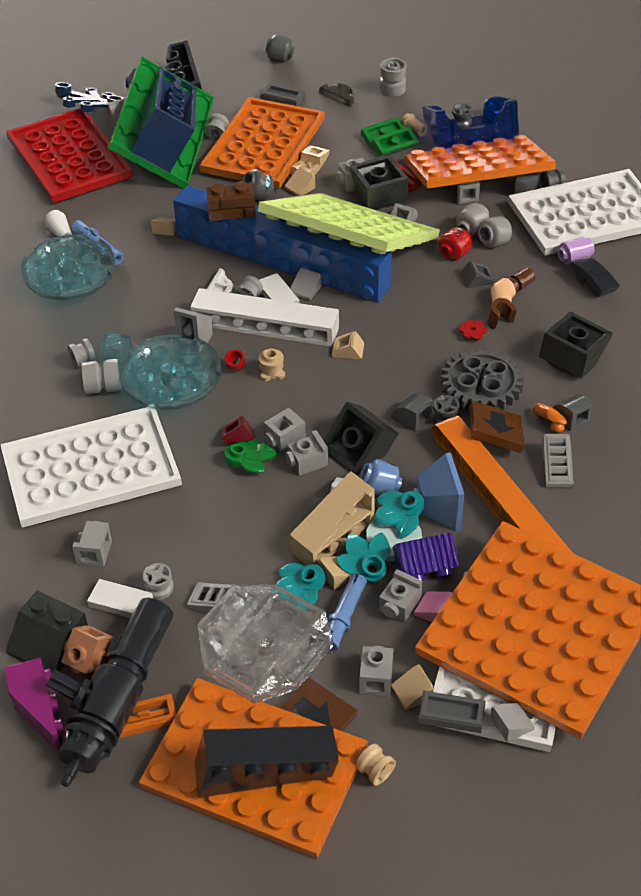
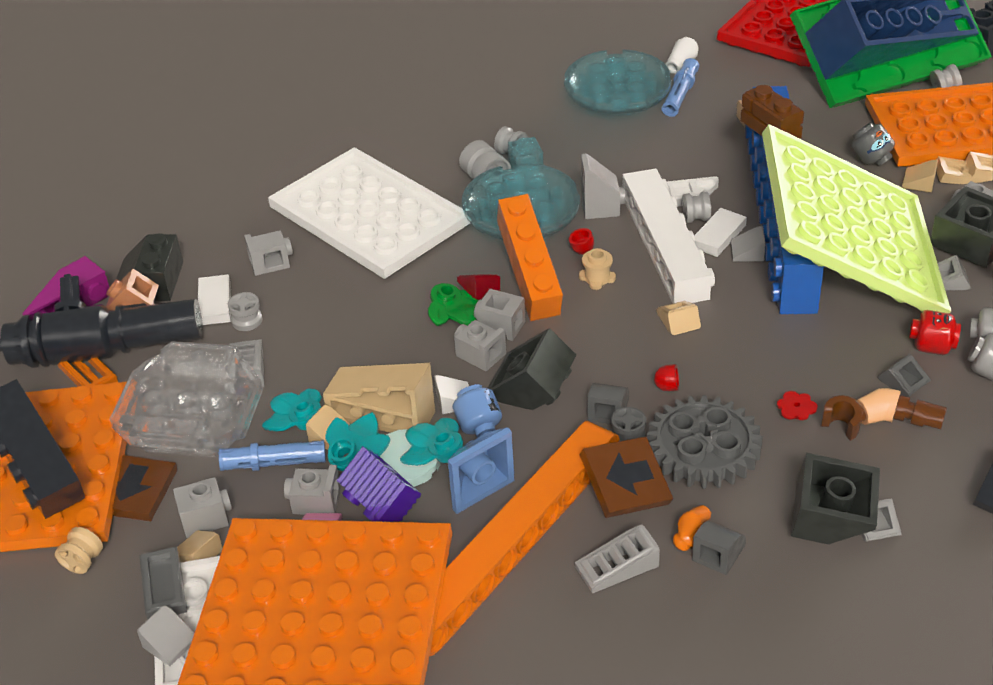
camera: 65 degrees right, 5 degrees down
(247, 386) = (529, 257): none -> orange brick
(409, 374) = (667, 378): none -> red hinge

